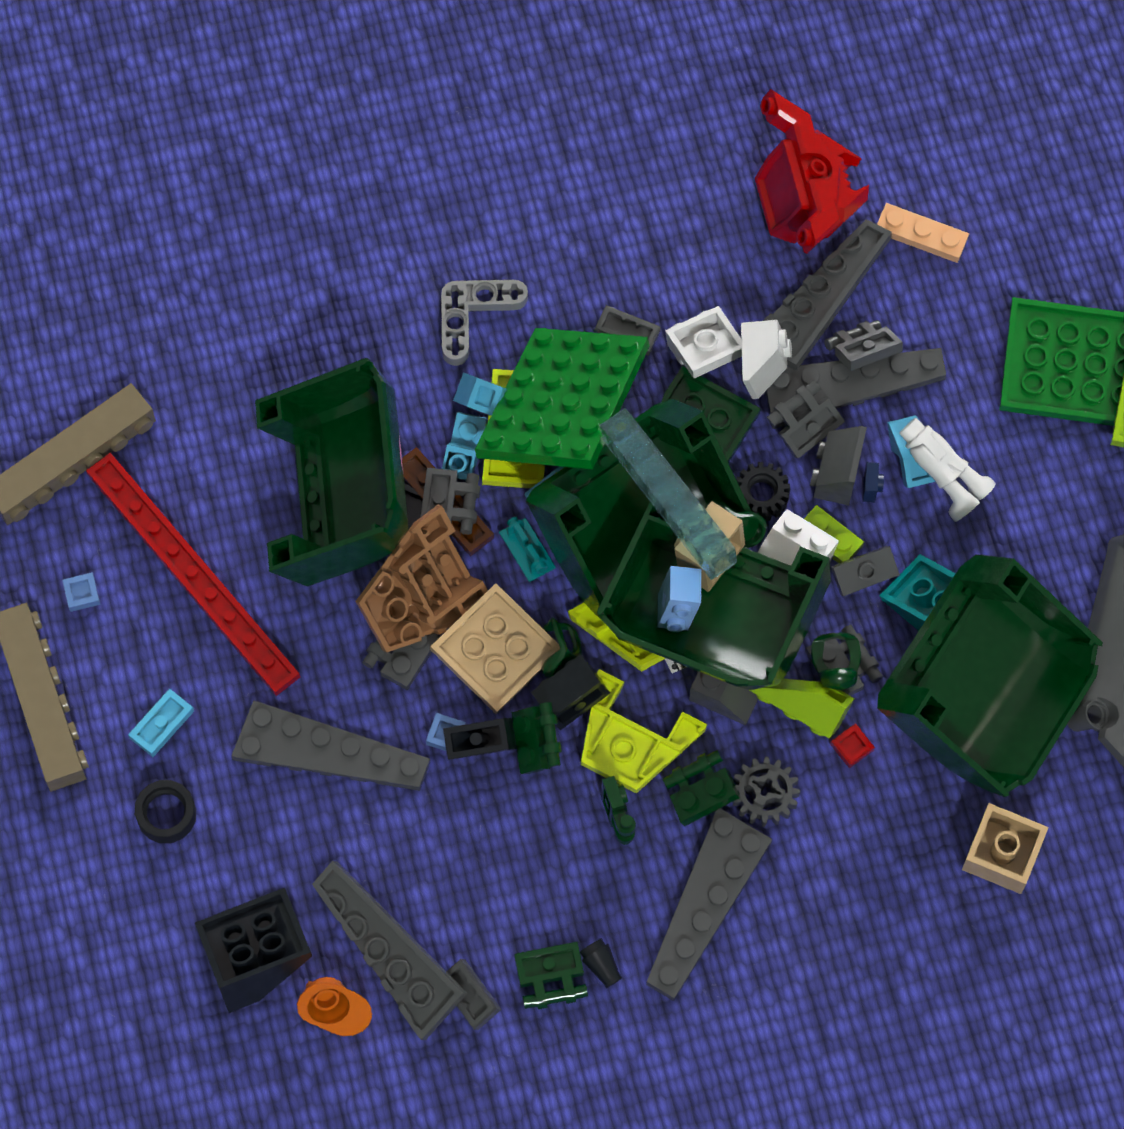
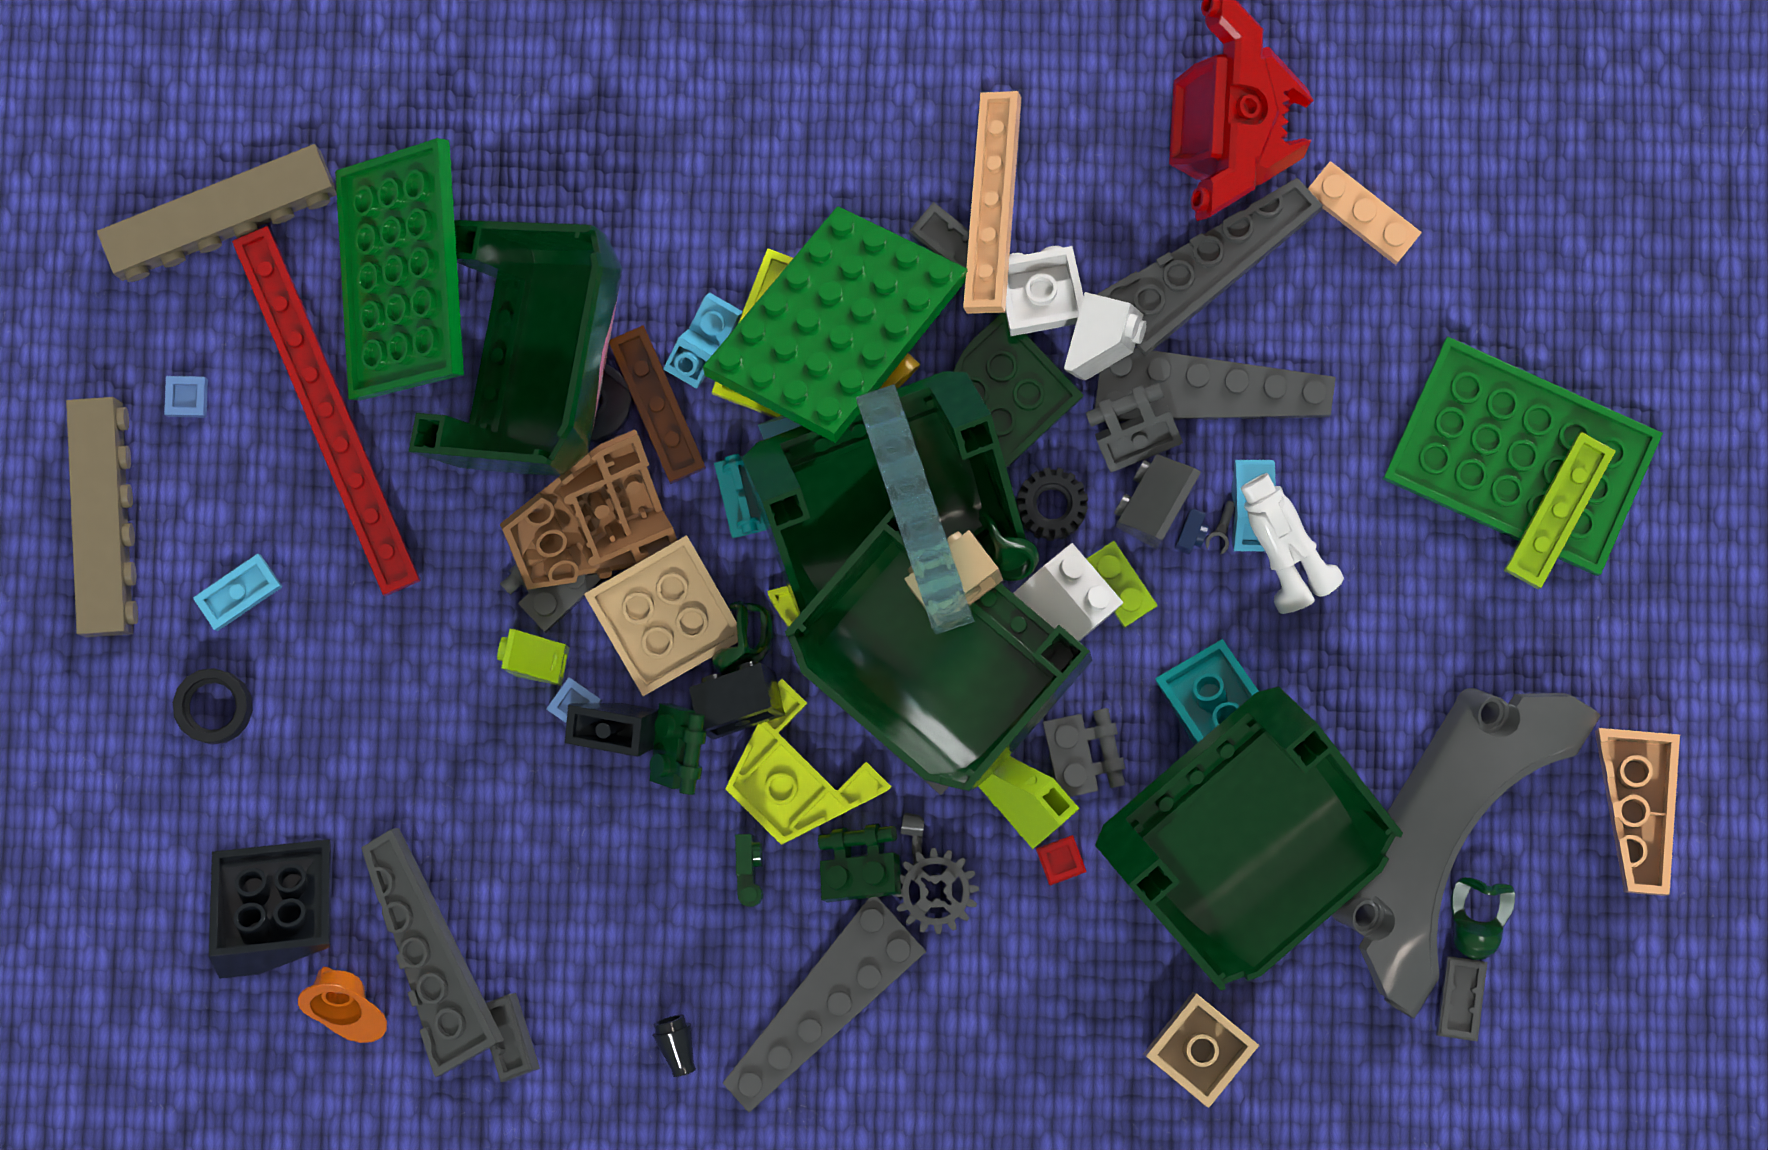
camera: 20 degrees right, 15 degrees up
(223, 451) = (399, 270): none -> green plate
(300, 744) = (401, 667): dark grey wing -> none
(405, 701) = (533, 657): none -> lime slope
(441, 489) = (650, 404): dark grey plate -> none
(469, 302) = (767, 147): light grey beam -> none
(478, 394) = (736, 280): medium azure slope -> none
(550, 965) = (611, 1029): dark green plate -> none
(650, 291) = (992, 202): none -> light nougat plate
(679, 598) = (895, 636): light blue brick -> none
(733, 750) = (913, 826): none -> dark grey hand
(836, 677) = (1064, 779): dark green piece -> none
(864, 344) = (1239, 356): dark grey plate -> none
(865, 570) = (1146, 643): dark grey plate -> none
(893, 475) = (1222, 526): none -> dark grey hand

